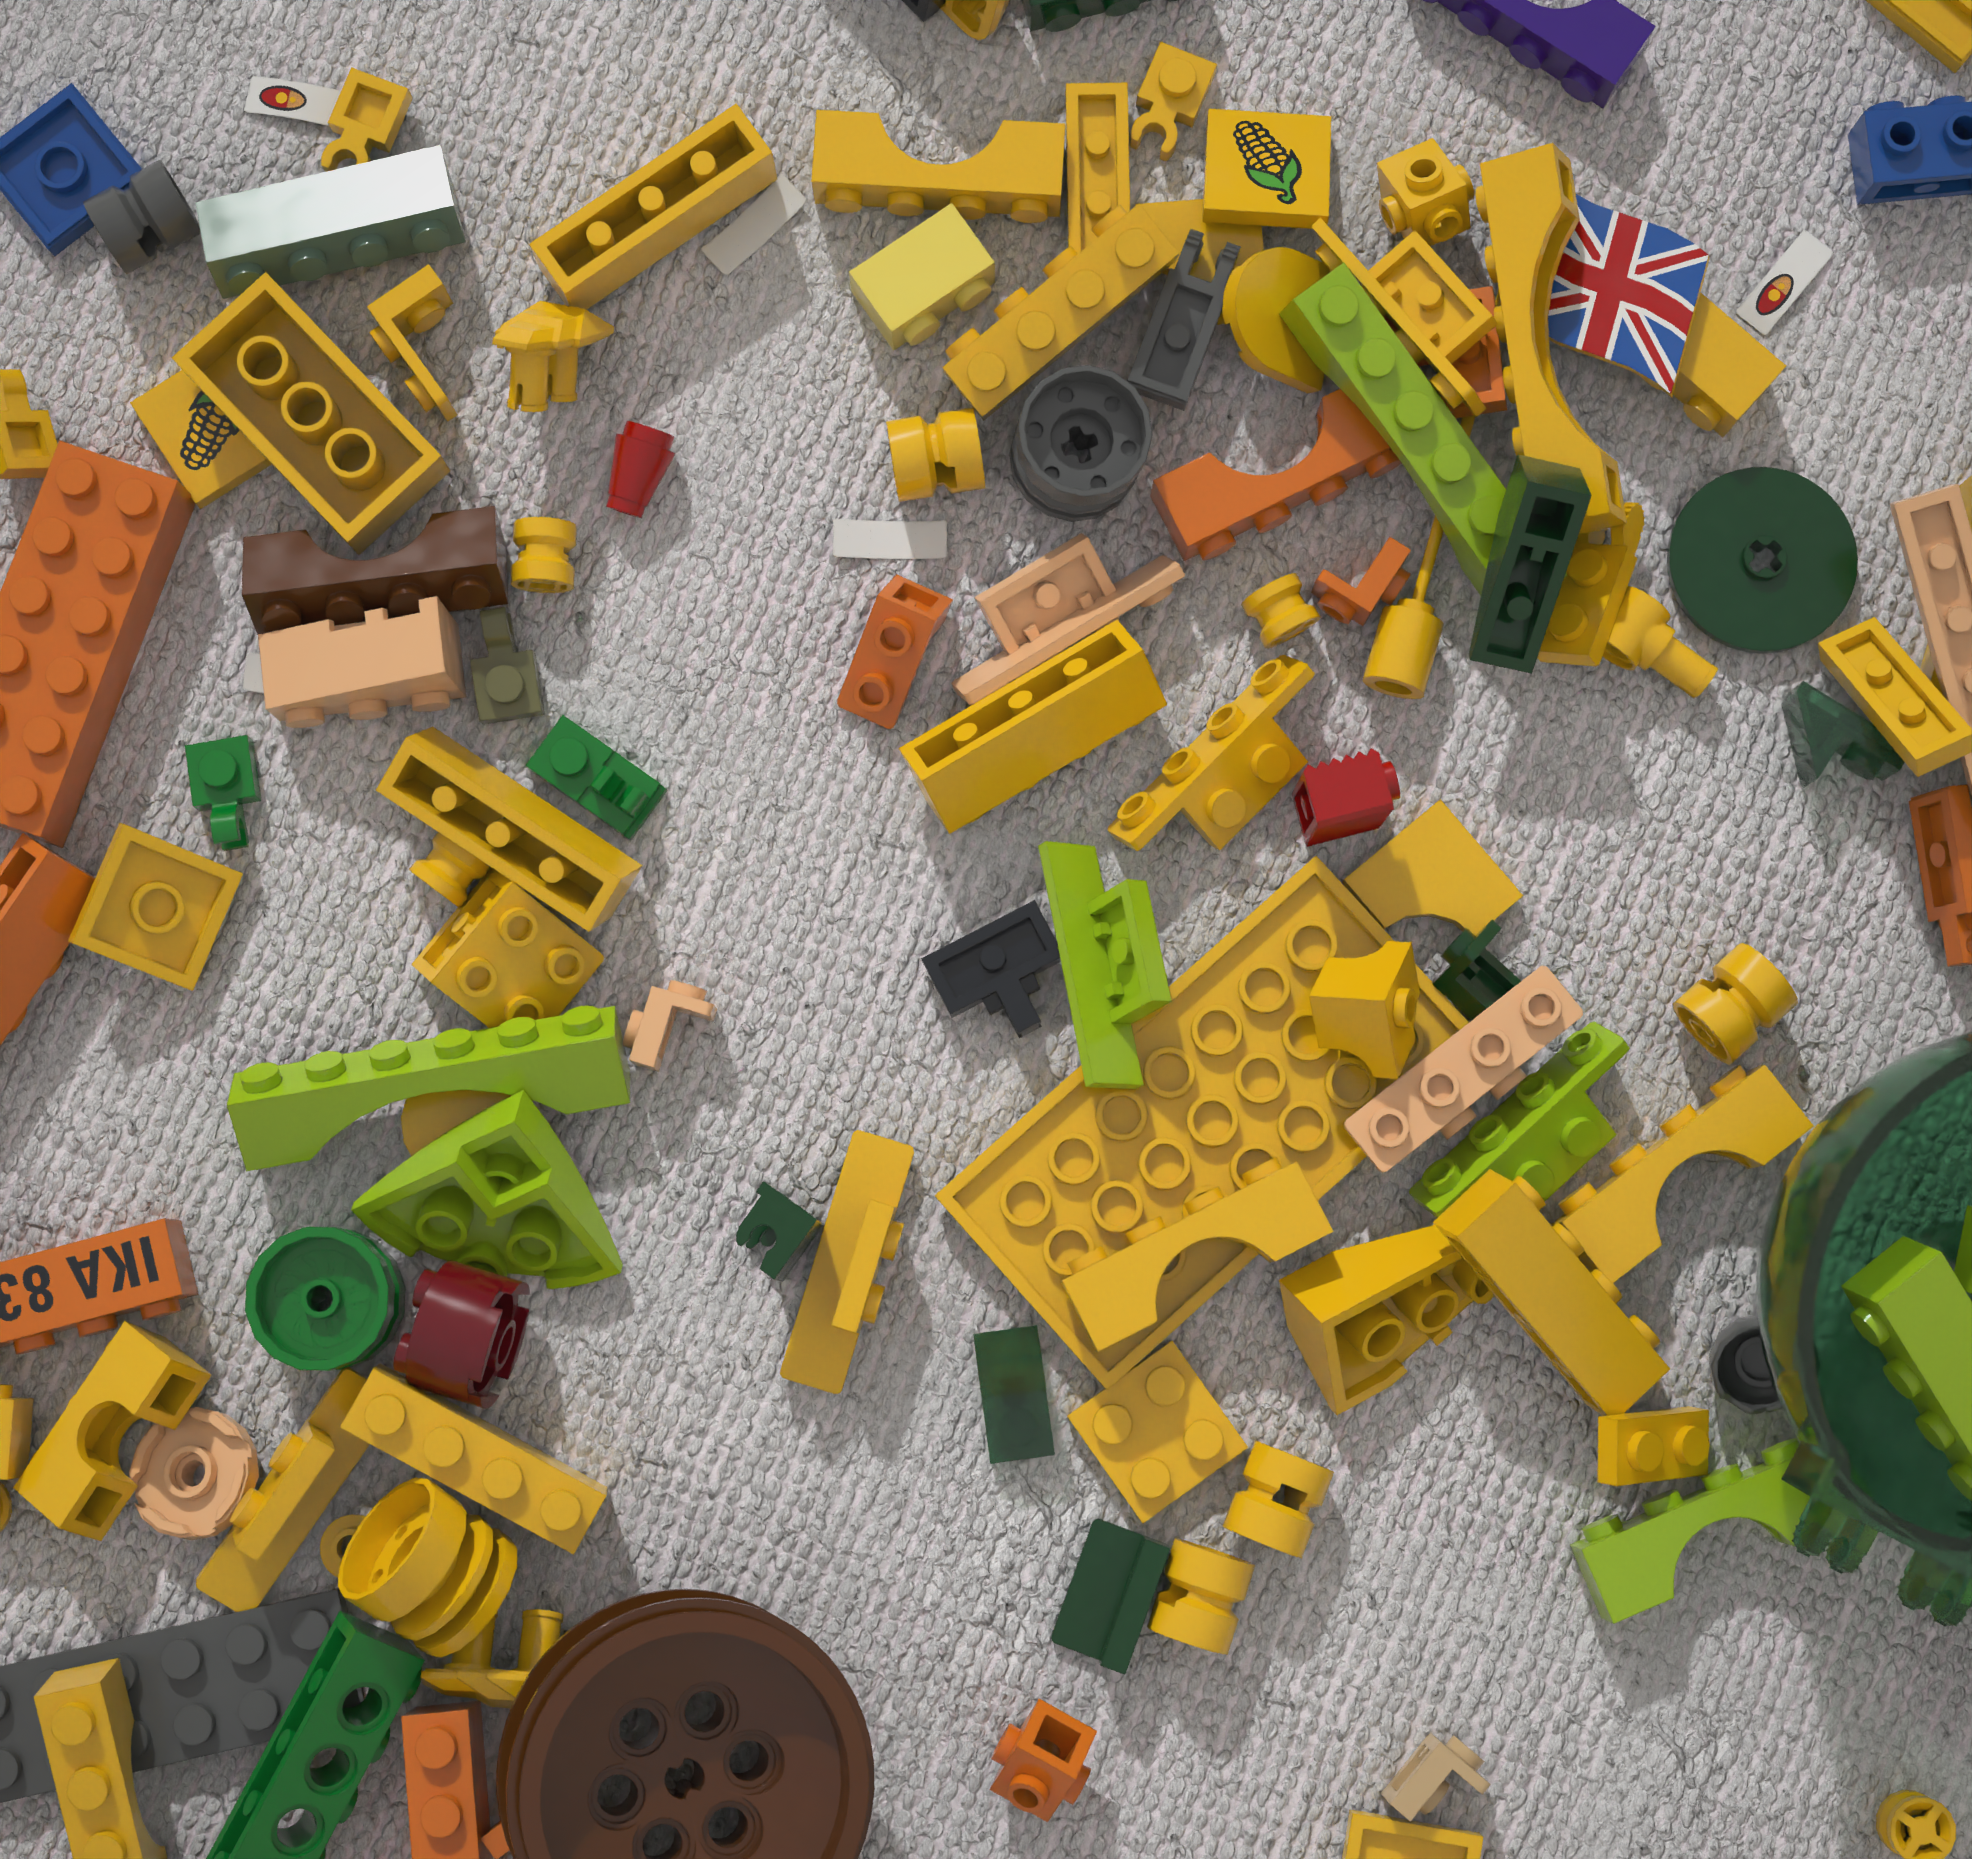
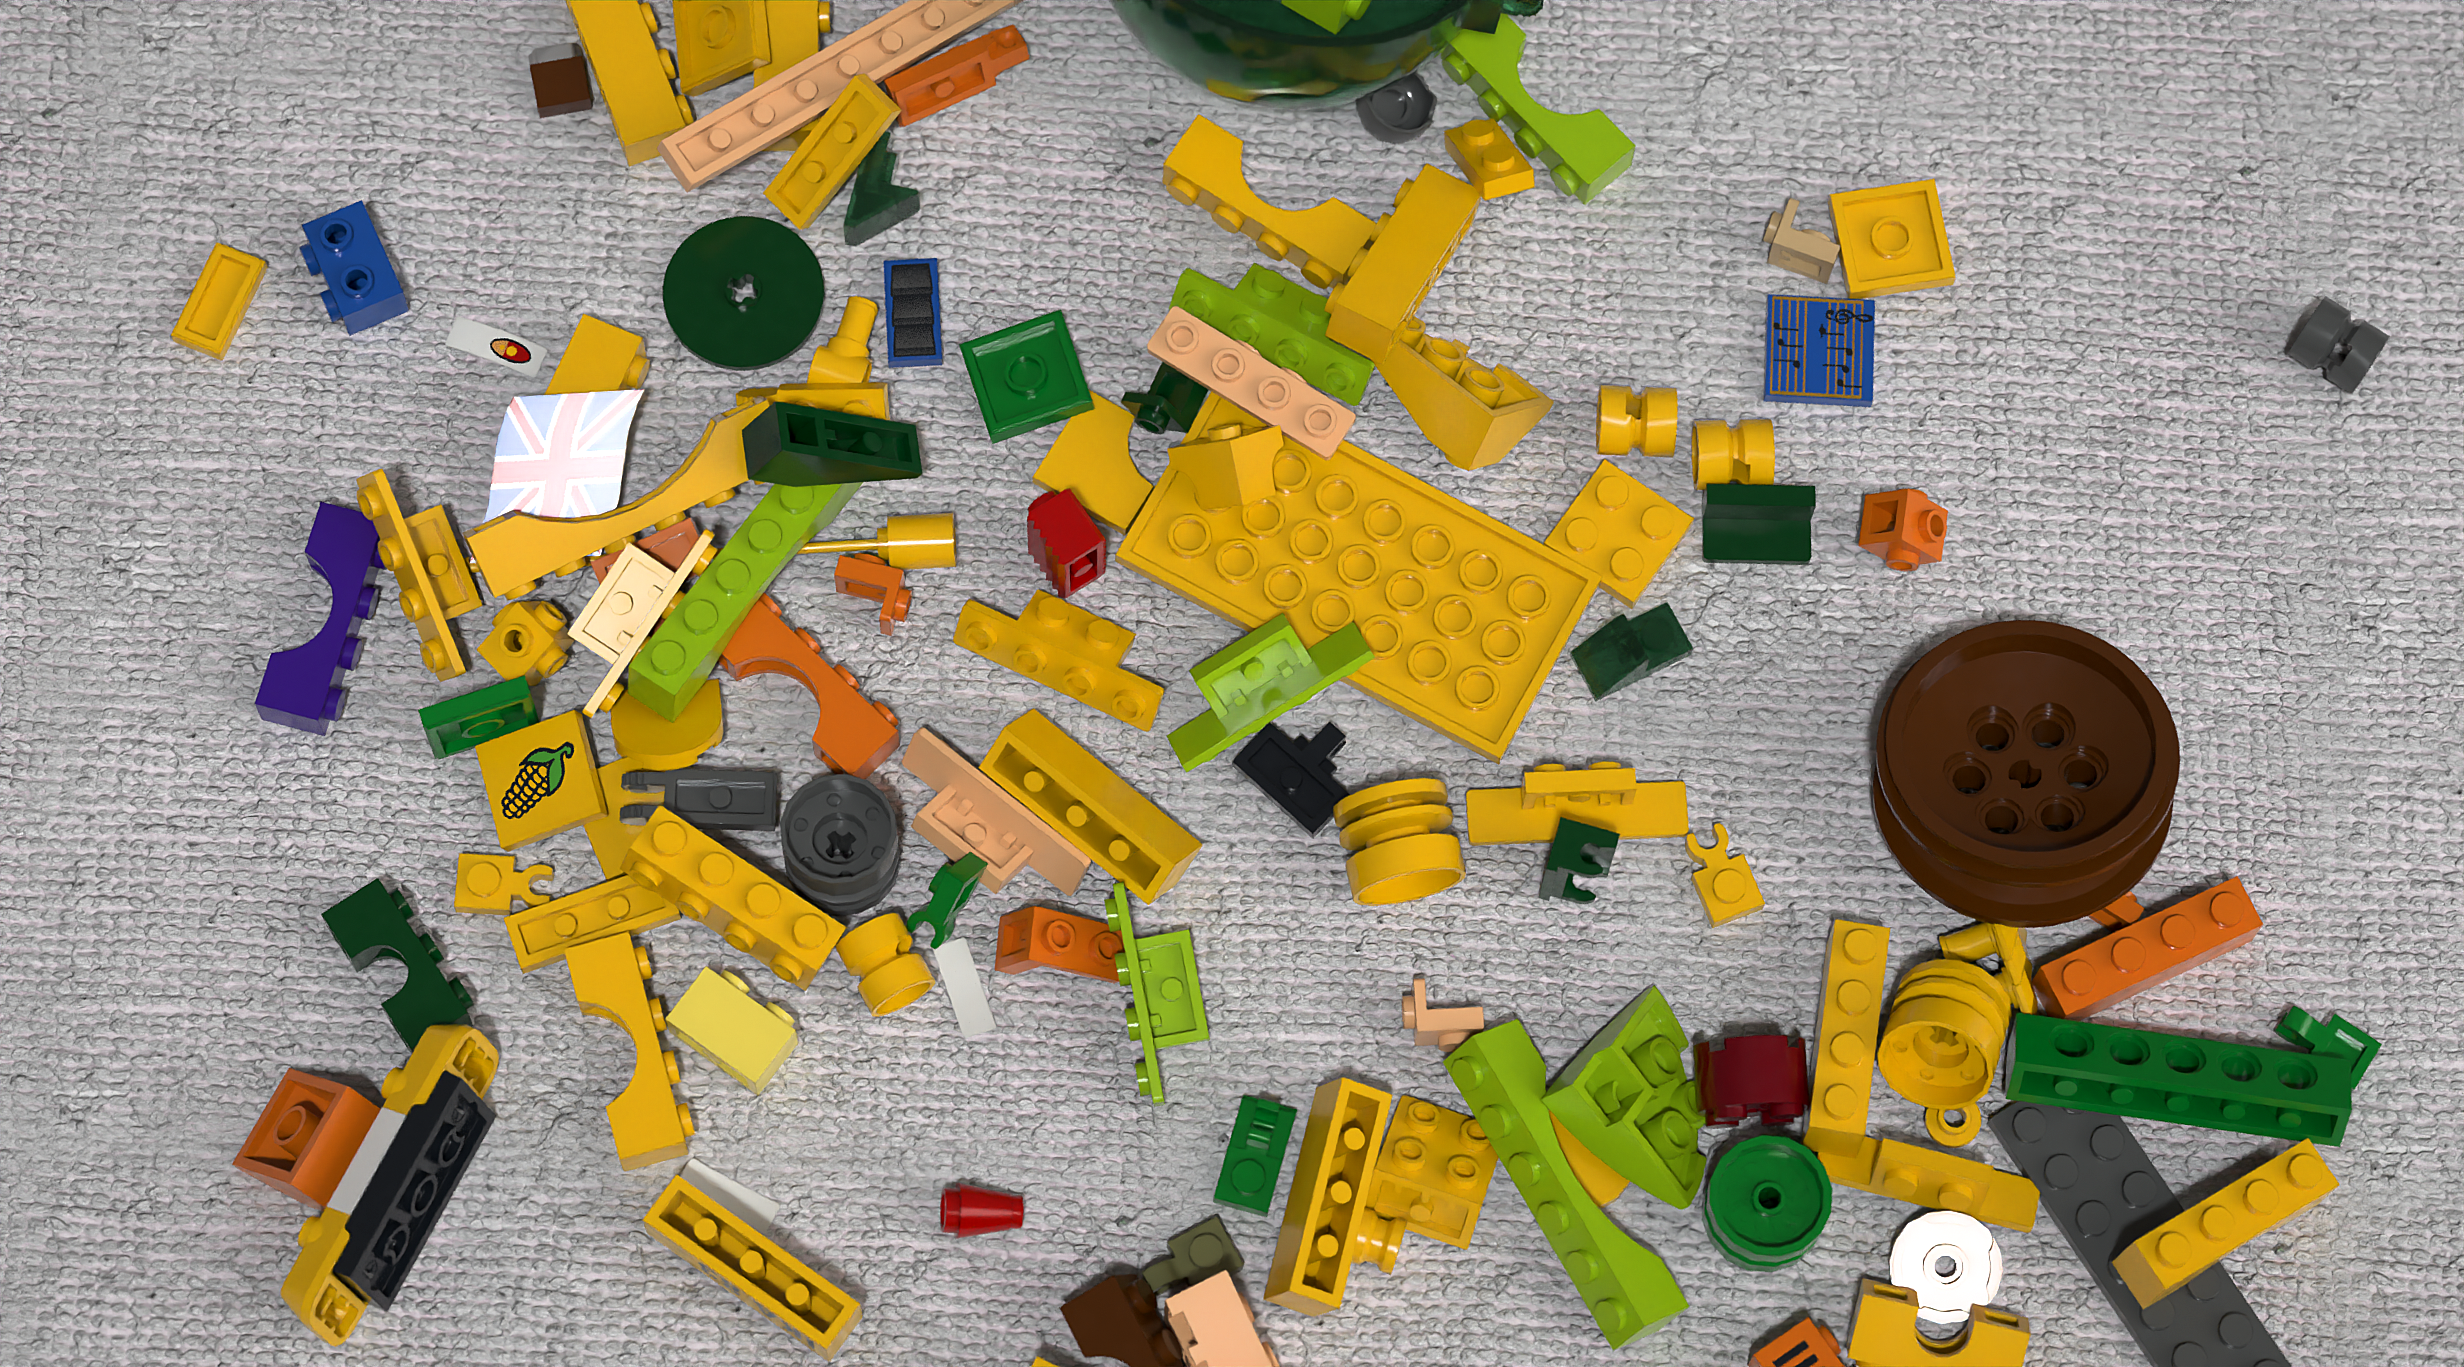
camera: 115 degrees left, 10 degrees down
(543, 559) = (1082, 1260): yellow wheel -> none
(545, 352) = (902, 1313): yellow connector -> none
(709, 1396) = (1723, 884): none -> yellow plate
(803, 733) = (1164, 992): none -> lime bracket
(870, 1042) = (1399, 842): none -> yellow wheel
(986, 541) = (951, 891): none -> green plate
(1268, 1215) = (1521, 583): yellow arch -> none
(1280, 610) = (920, 648): yellow wheel -> none
(1299, 1750) = (1819, 350): none -> blue tile
(1352, 115) = (478, 717): none -> green tile
(1561, 832) = (1026, 376): none -> green tile
(1564, 110) = (427, 568): none -> yellow bracket
(1679, 736) = (912, 313): none -> tile
(1739, 999) = (1120, 203): yellow wheel -> none

